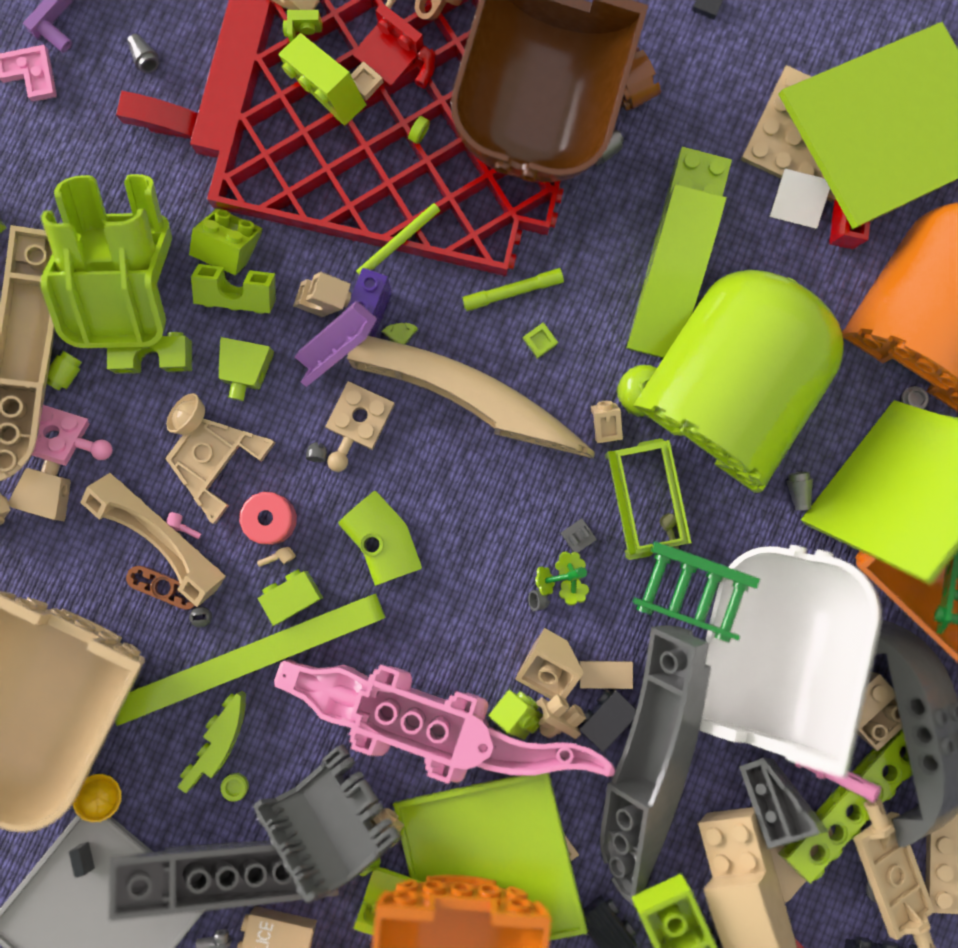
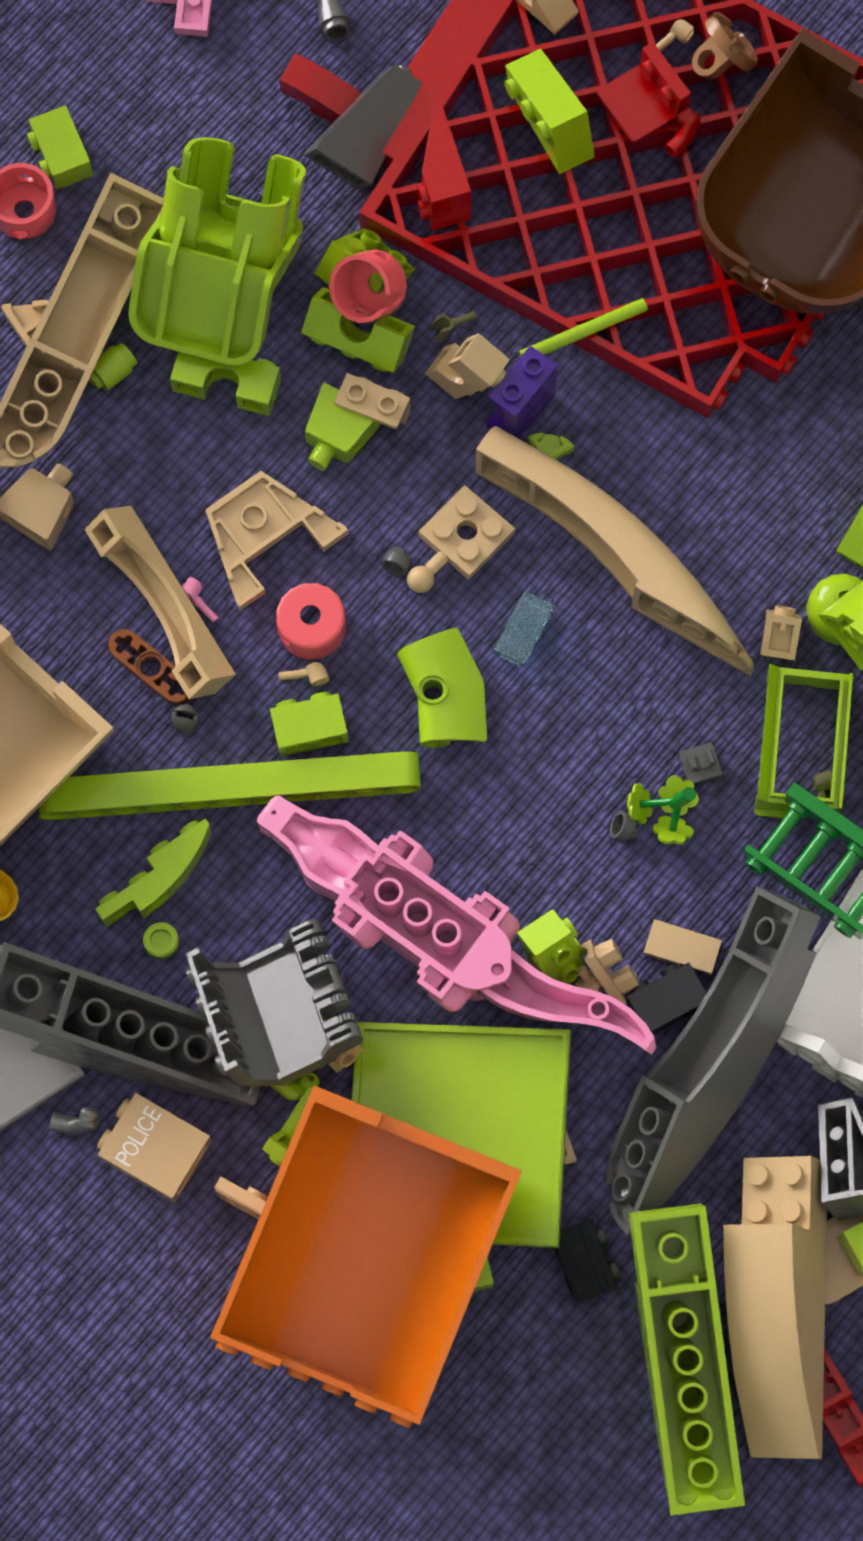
camera: 20 degrees right, 10 degrees down
(71, 430) = (96, 444): bright pink plate -> none
(186, 415) = (248, 464): tan hat -> none
(189, 139) = (357, 138): none -> dark grey slope
(218, 262) = (351, 287): none -> coral piece
(261, 164) = (444, 187): none -> red slope
(261, 341) = (373, 401): none -> tan bracket
(296, 263) = (446, 324): none -> olive hand
(301, 21) = (547, 35): lime bracket -> none
(335, 341) = (466, 425): medium lavender fence -> none
(366, 80) = (604, 127): tan plate -> none
(419, 130) = (651, 205): lime tile -> none
(423, 474) = (524, 629): none -> clear light blue plate
(540, 281) = (670, 435): lime piece -> none
(540, 340) = (726, 509): lime tile -> none
(550, 666) = (613, 908): tan slope -> none

